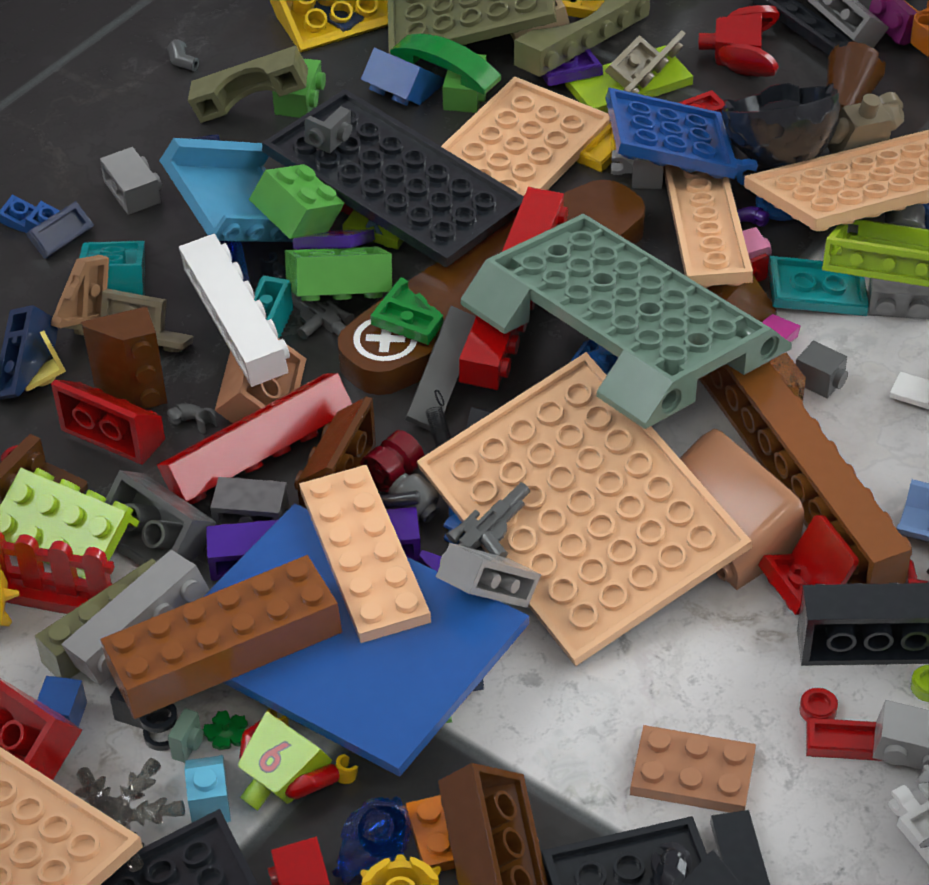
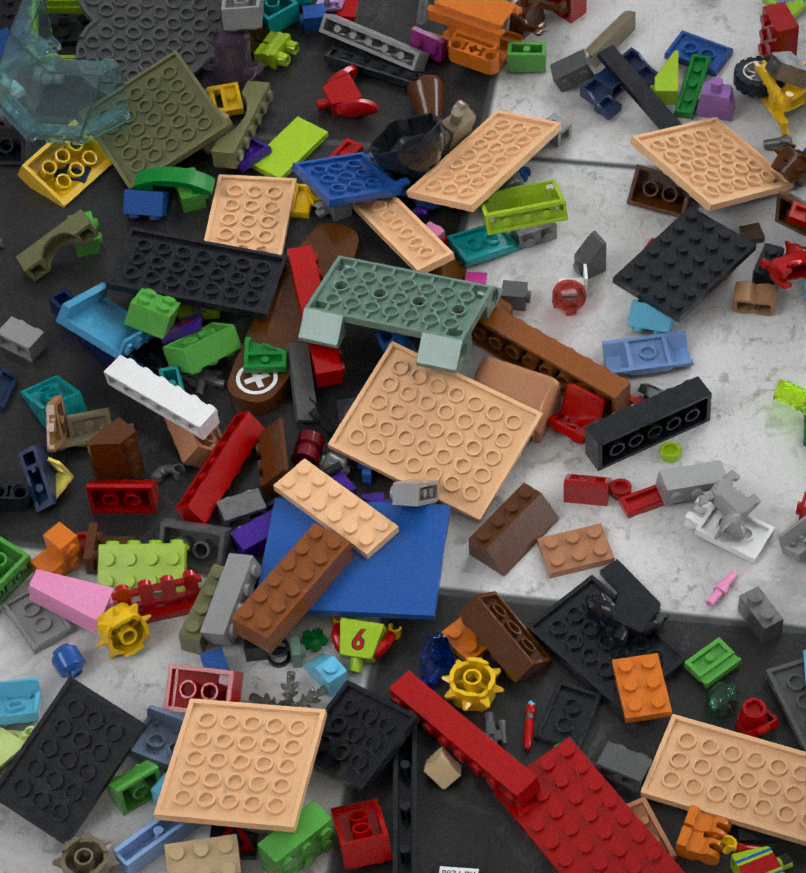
camera: 25 degrees left, 5 degrees up
(331, 132) = (144, 263): dark grey bracket -> none
(492, 525) = (393, 466): dark grey piece -> none
(613, 695) = (512, 529): none -> reddish brown slope
(639, 60) = (293, 136): dark tan bracket -> none
(763, 683) = (586, 489): none -> red slope
(897, 414) = (569, 306): none -> clear red piece

